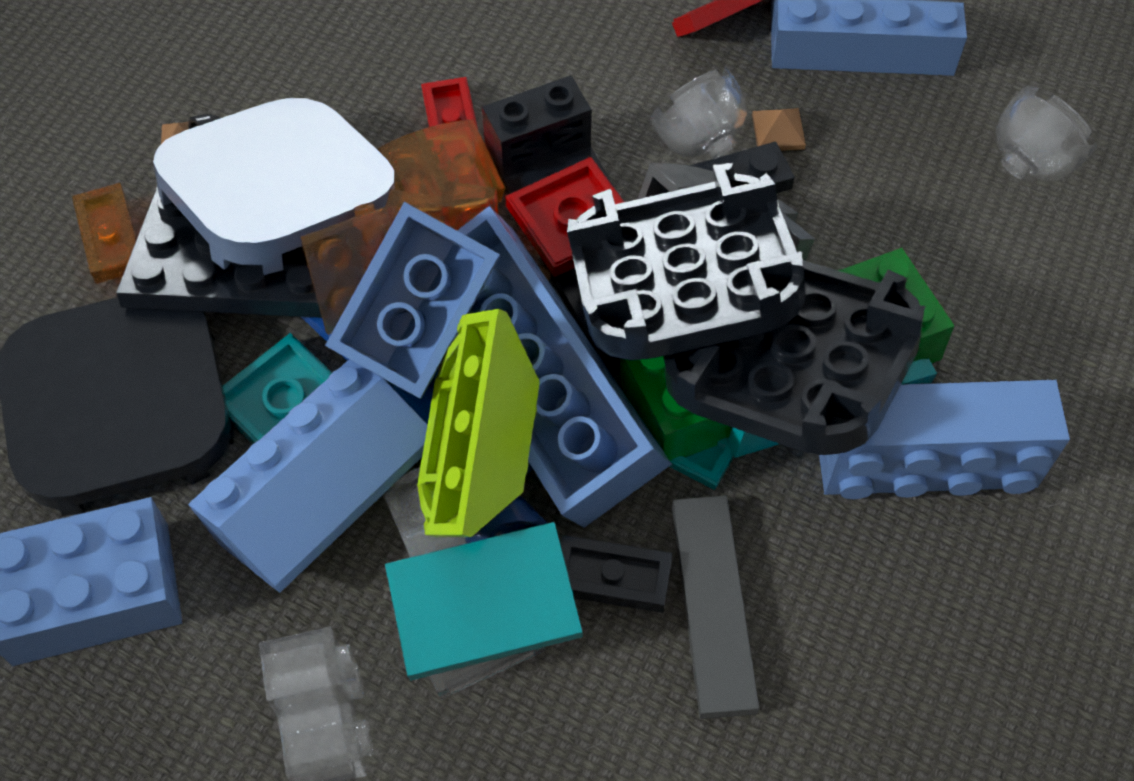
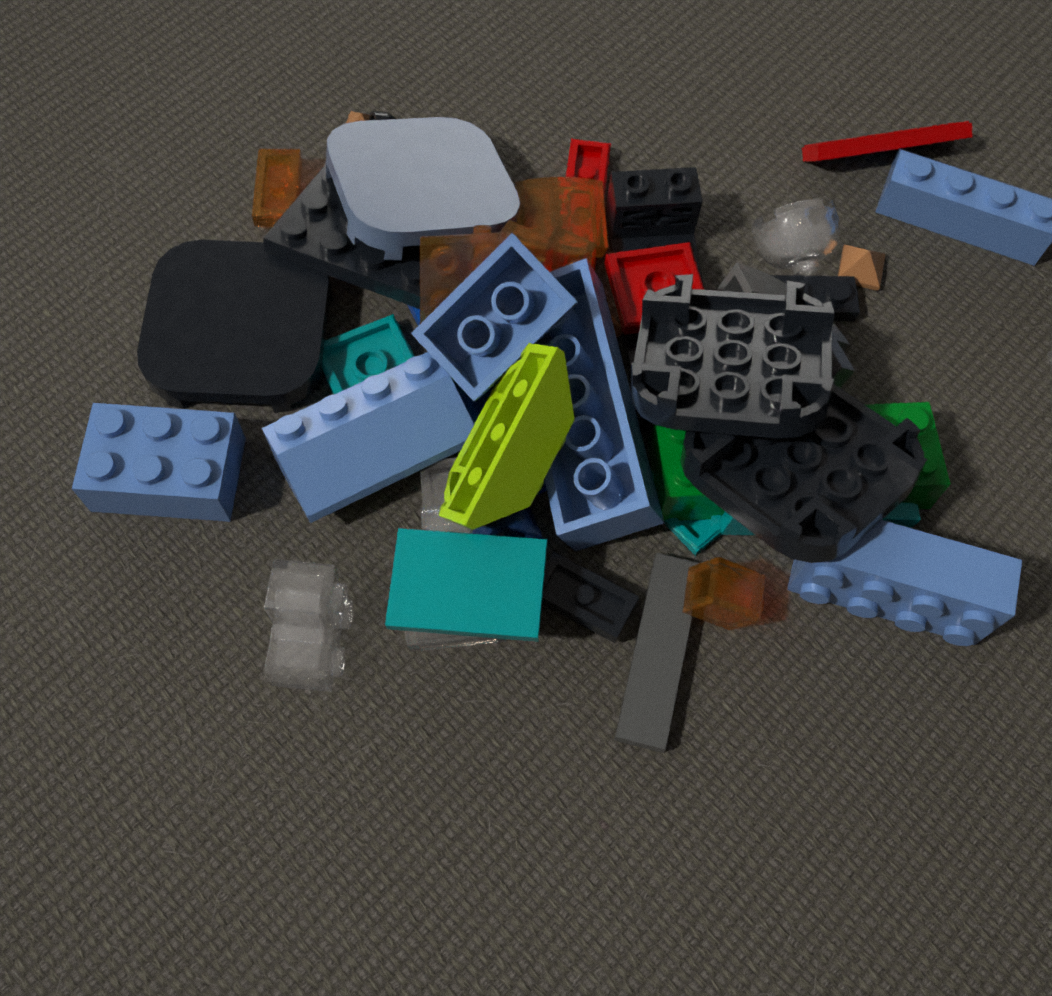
camera: 15 degrees right, 5 degrees up
(762, 519) = (724, 593): none -> clear orange brick

